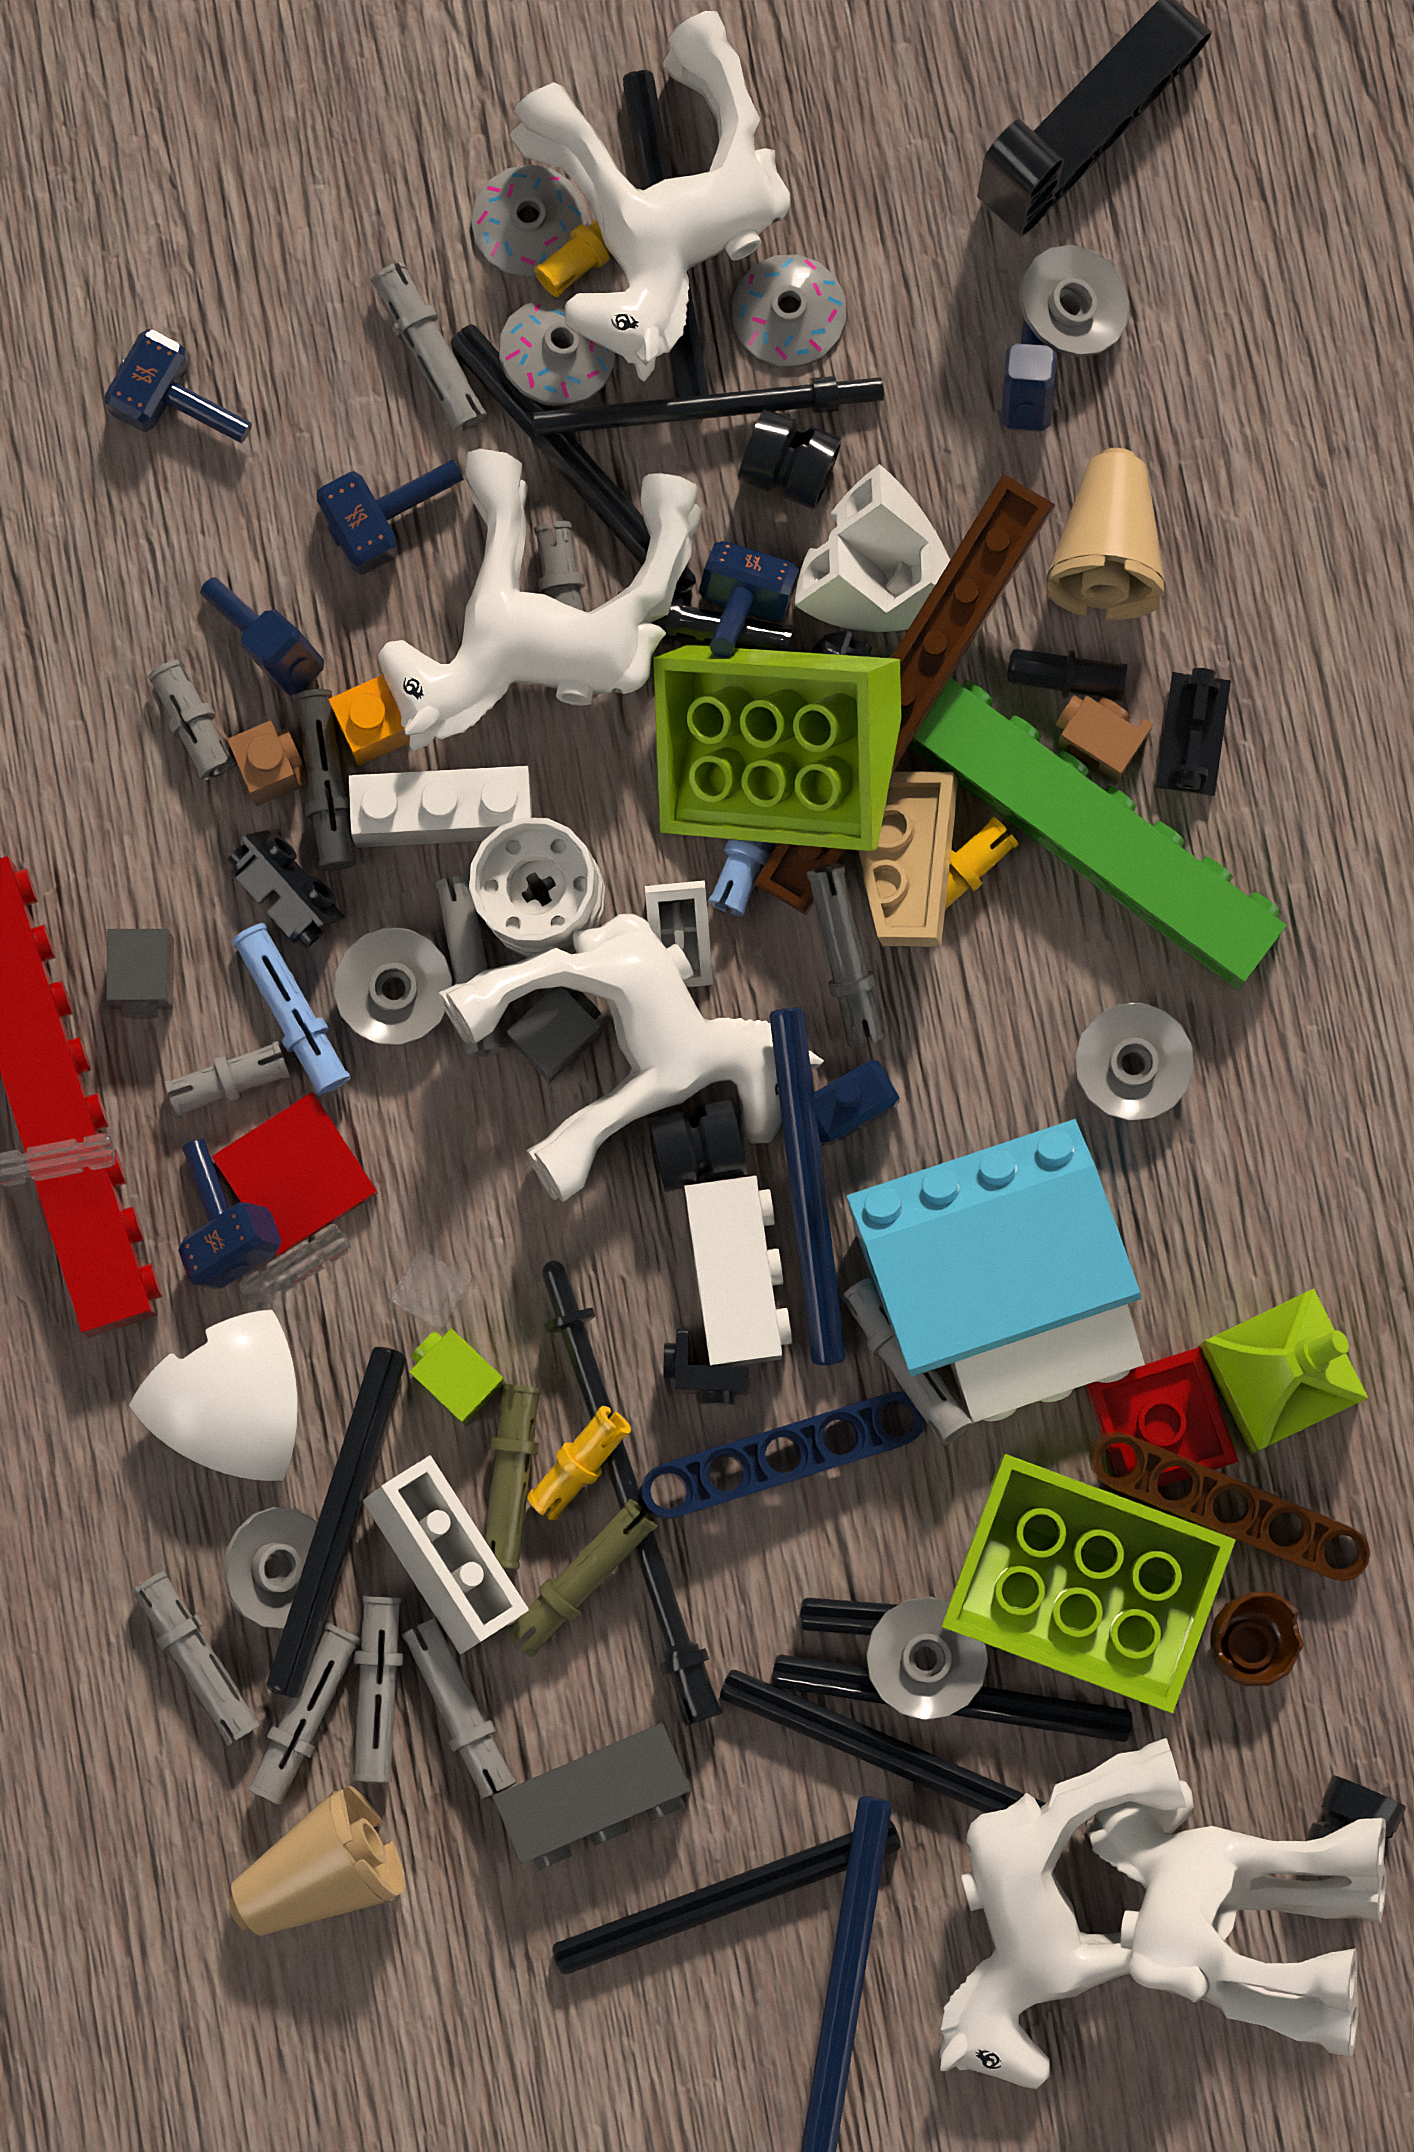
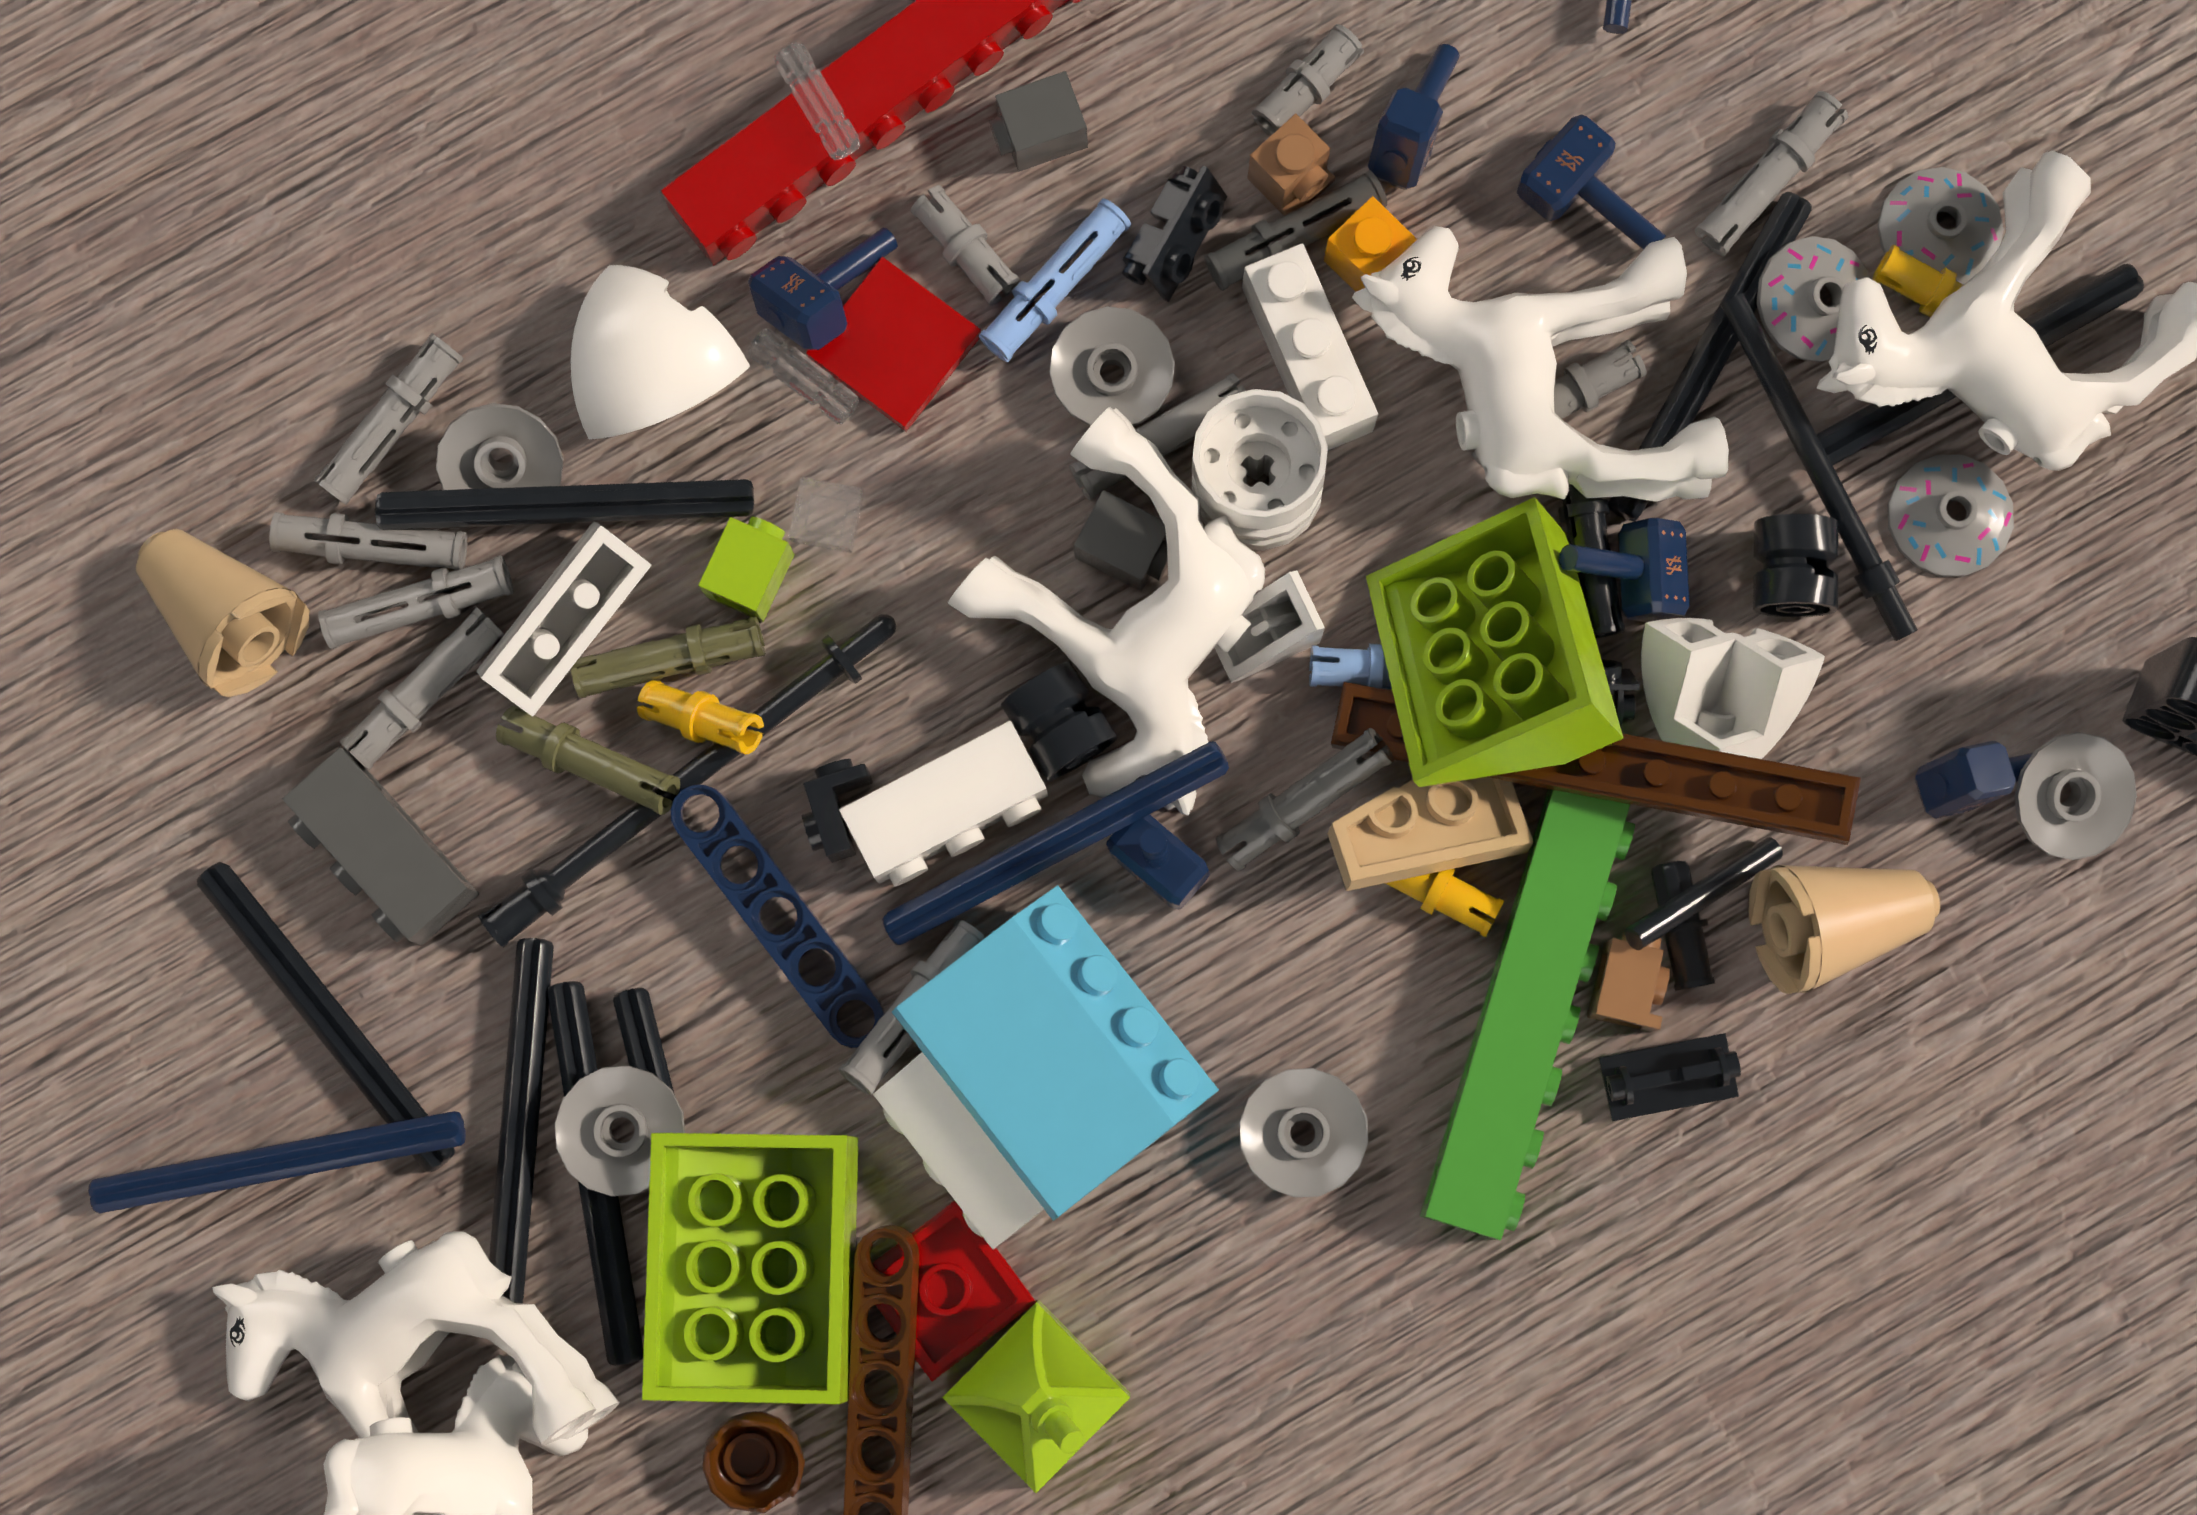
camera: 75 degrees right, 0 degrees up
(1048, 644) = (1703, 893): none -> black bar

